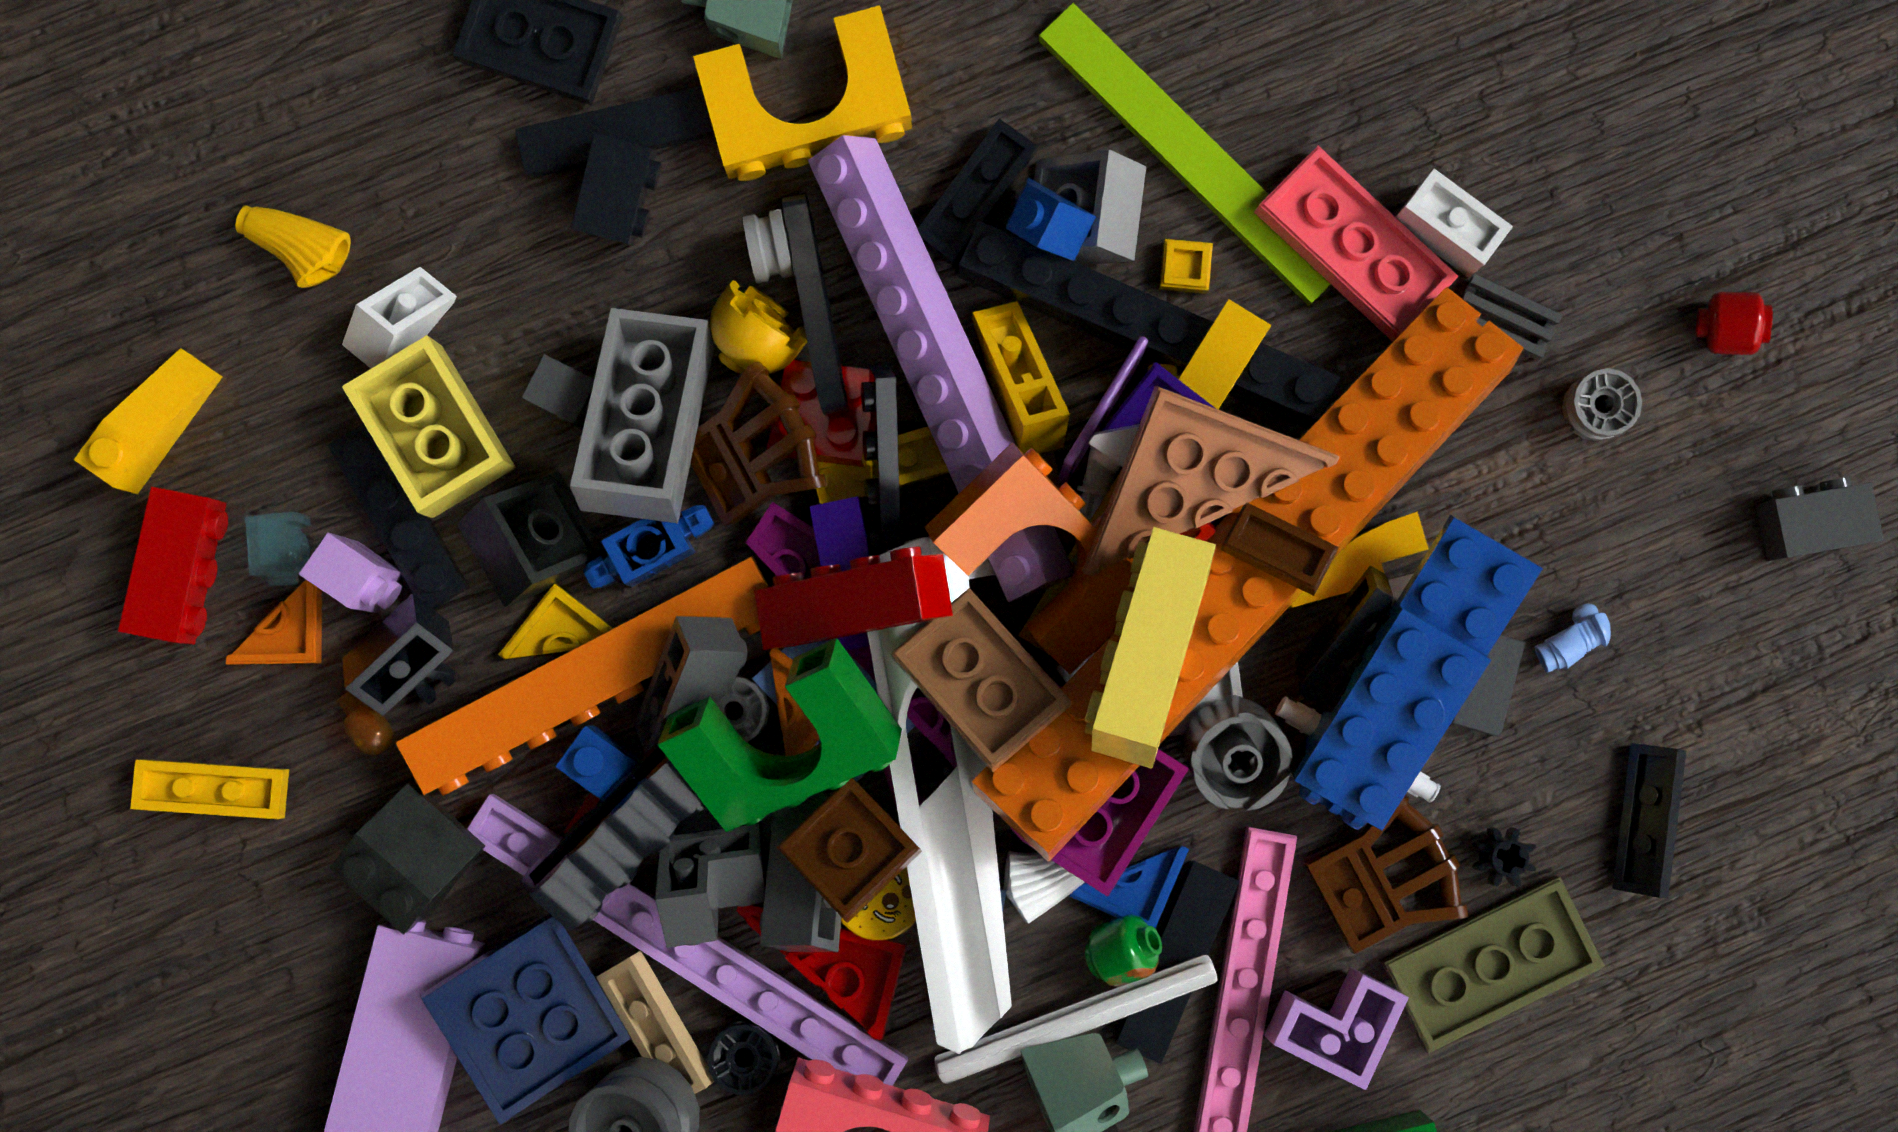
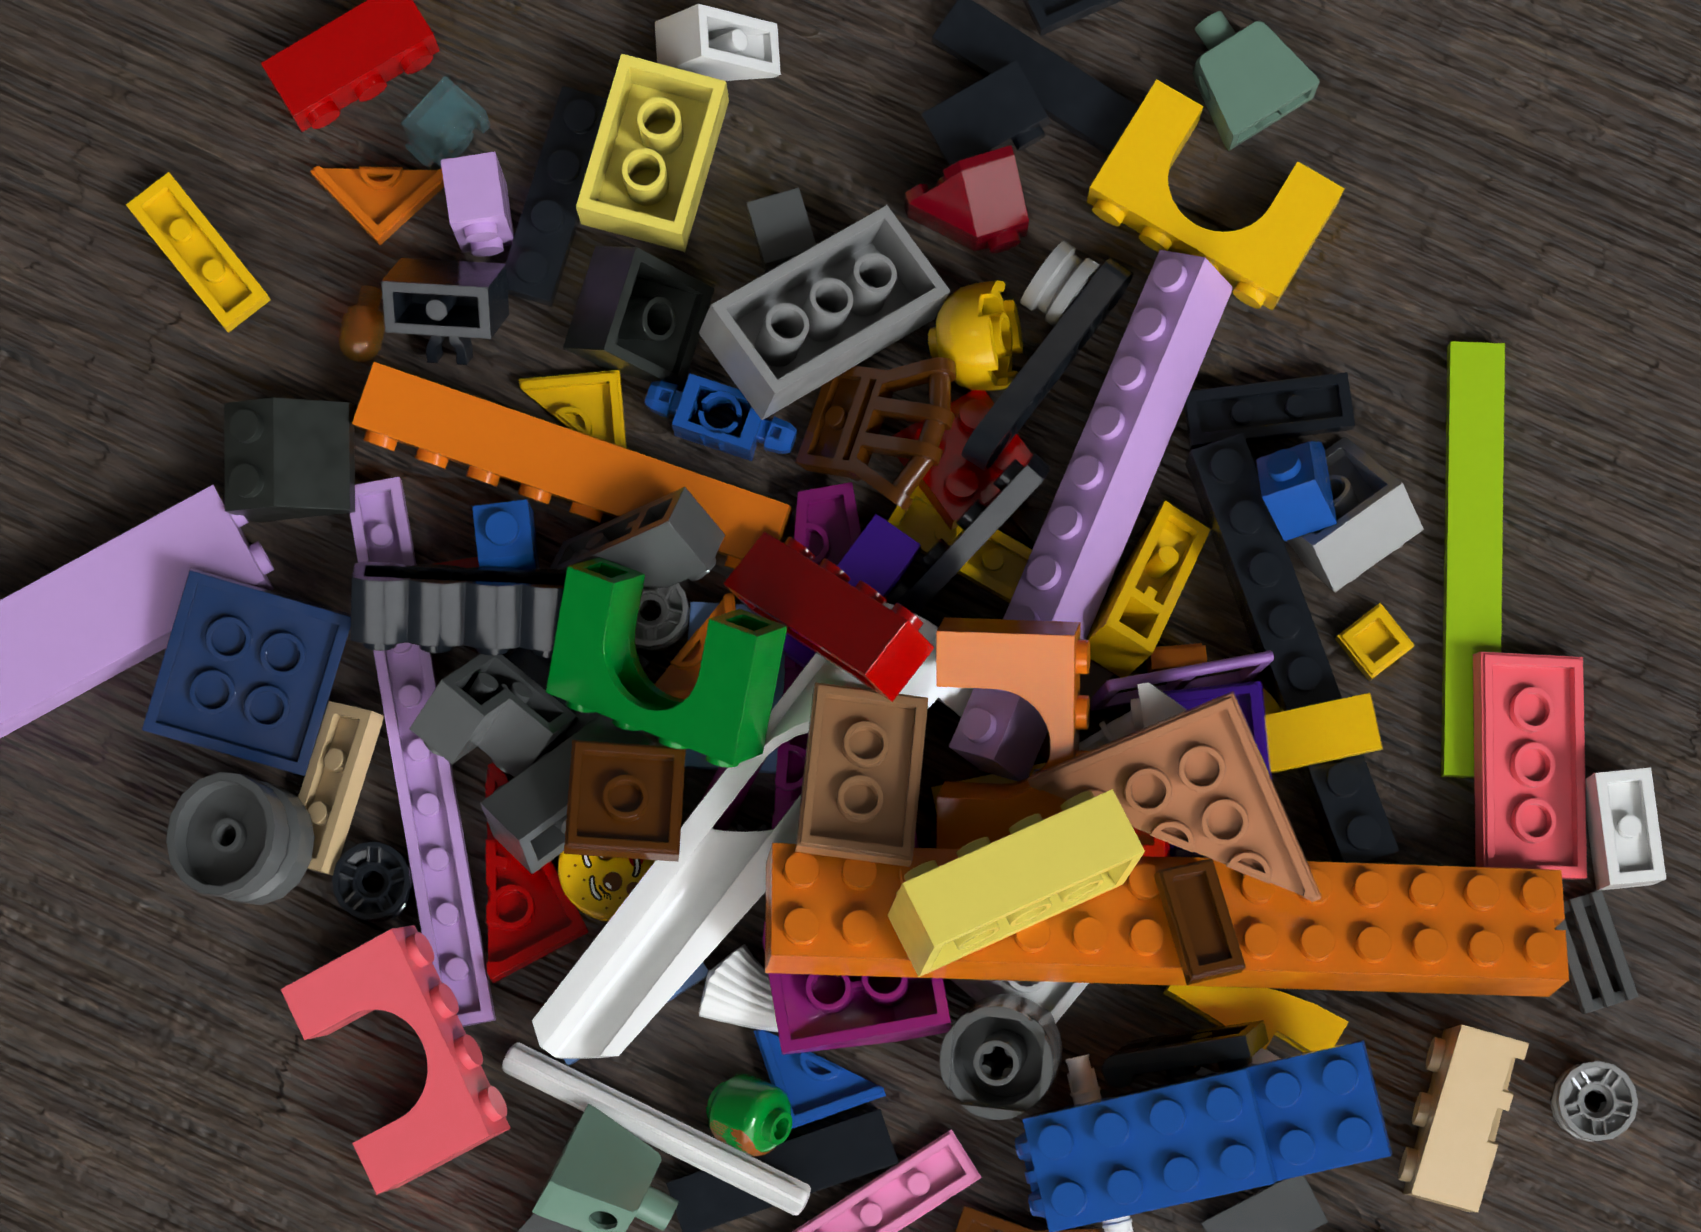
camera: 50 degrees right, 5 degrees down
(663, 249) = (975, 202): none -> dark red slope
(1084, 400) = (1176, 656): none -> orange tile
(1539, 498) = (1460, 1117): none -> tan wedge

